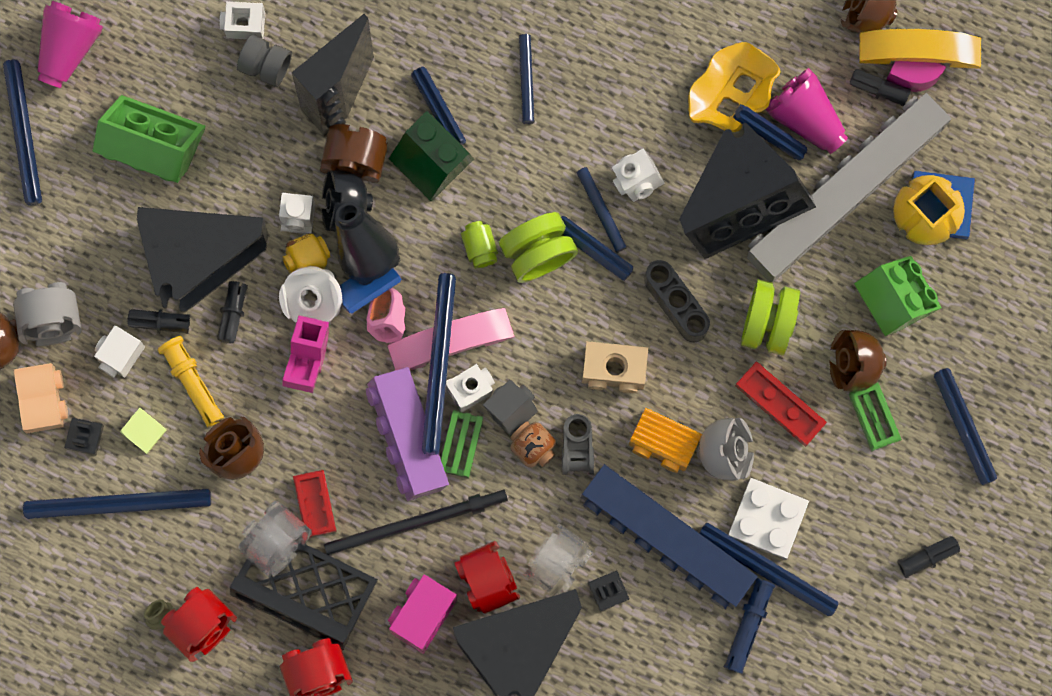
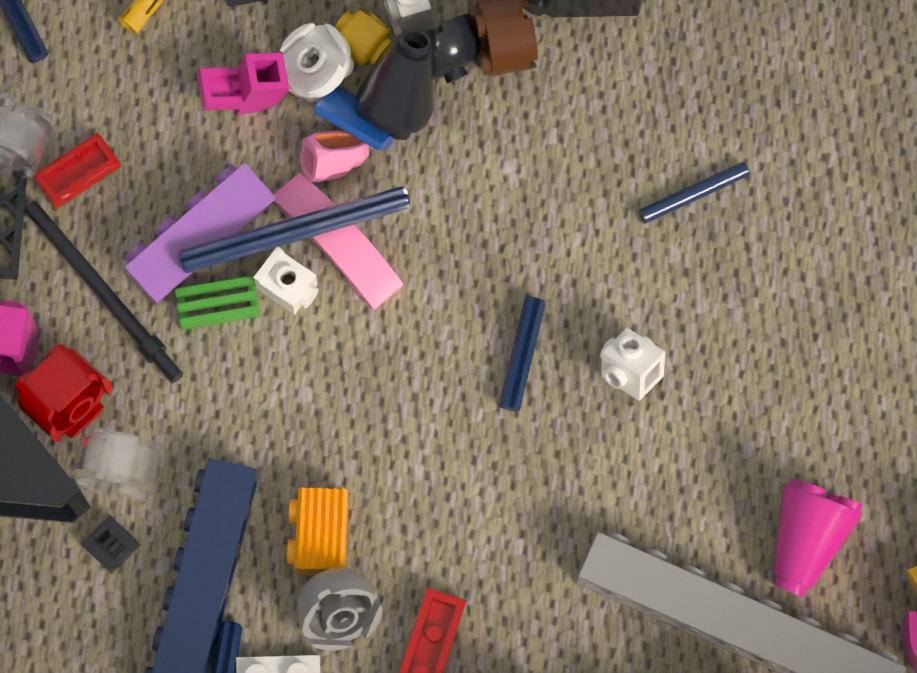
camera: 70 degrees right, 5 degrees down
(232, 448) = (98, 53): reddish brown cylinder -> none
(430, 156) = (547, 121): dark green slope -> none
(436, 103) = (610, 109): dark blue axle -> none
(479, 244) = (464, 221): lime brick -> none
(511, 406) = (282, 336): dark grey brick -> none
(533, 444) = (249, 382): head -> none
(538, 247) = (486, 282): lime wheel -> none
(577, 447) = (266, 433): dark grey piece -> none
(601, 210) = (574, 344): dark blue bar -> none
(631, 358) = (386, 412): tan brick -> none
(671, 287) = (505, 457): black beam -> none
(719, 81) = (798, 415): yellow piece -> none
(742, 194) = (660, 489): black ladder -> none
(769, 317) = (524, 590): lime wheel -> none
(770, 132) = (760, 495): dark blue axle -> none
(880, 87) = (889, 611): black axle -> none

